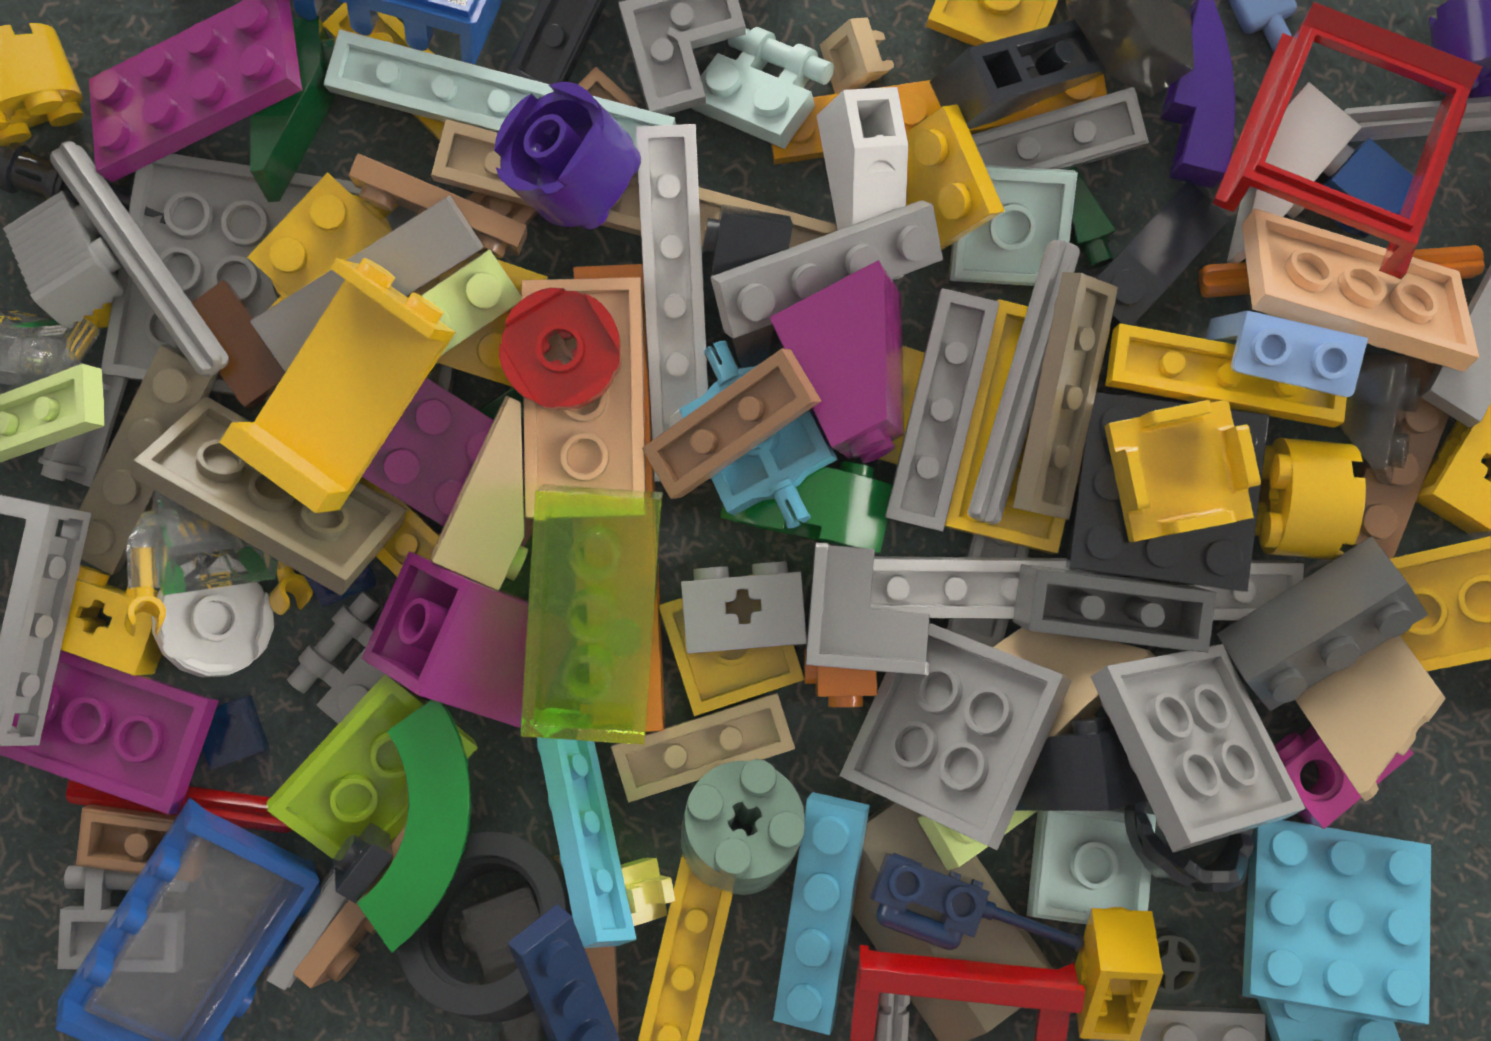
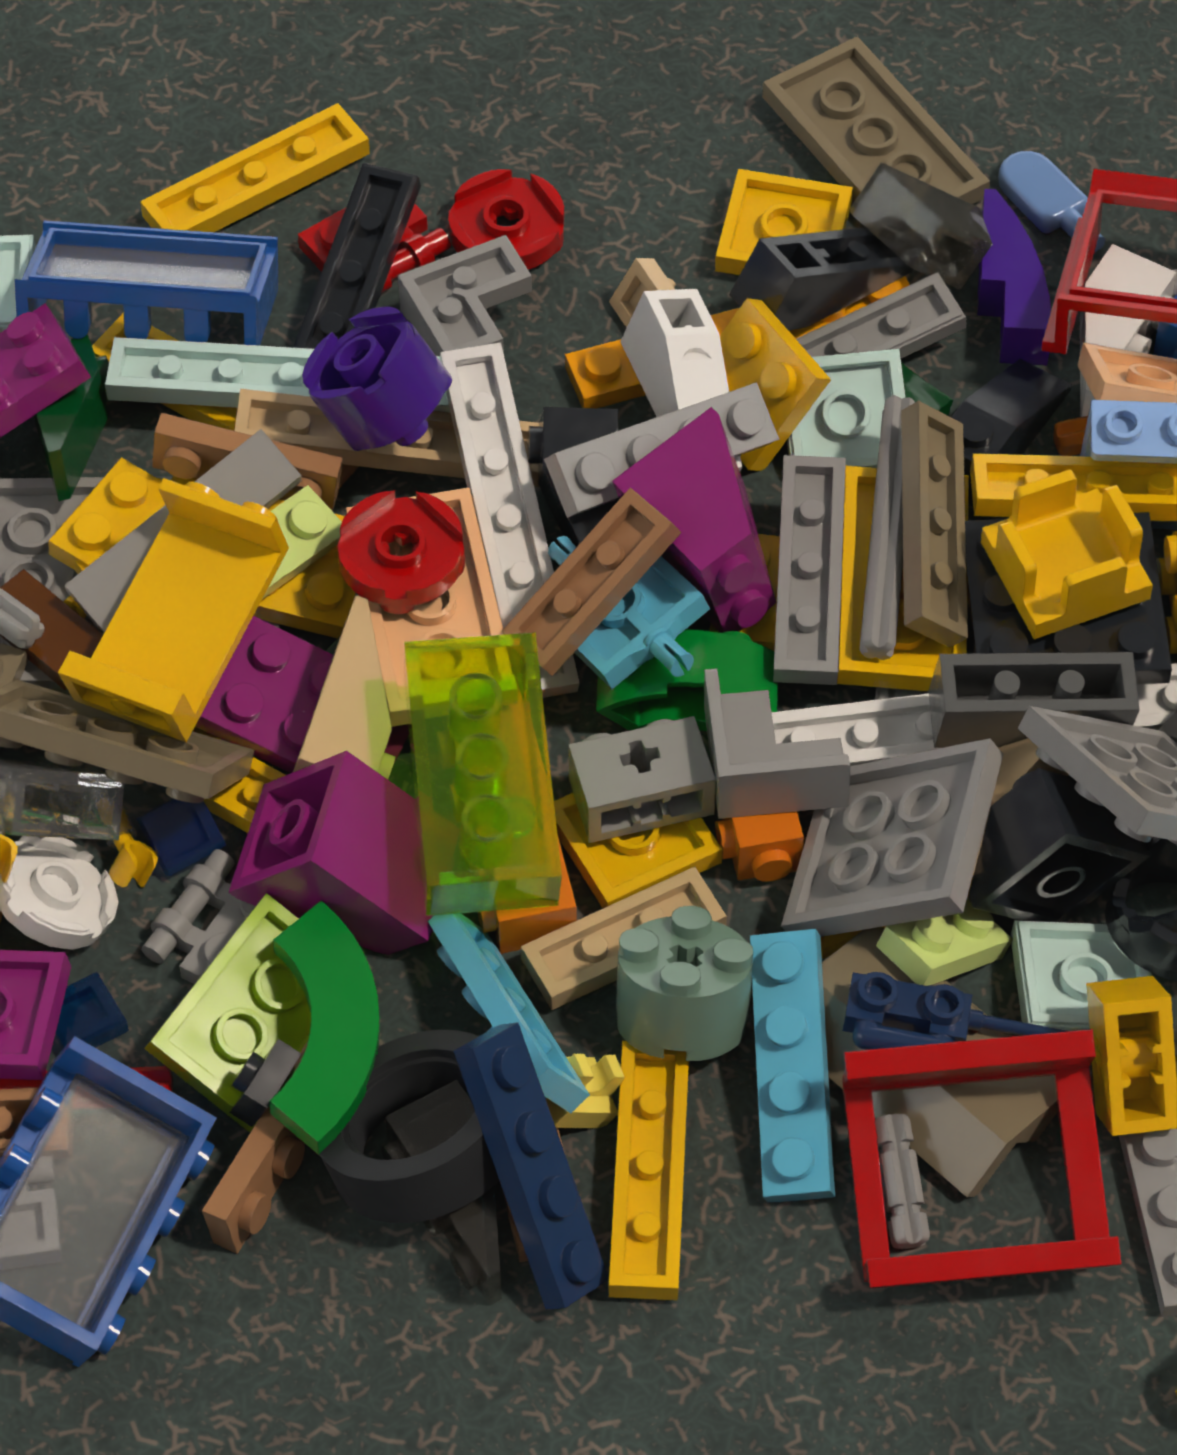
camera: 10 degrees left, 30 degrees down
(307, 932) = (190, 1217): light grey tile -> none
(755, 100) = (546, 346): light aqua plate -> none

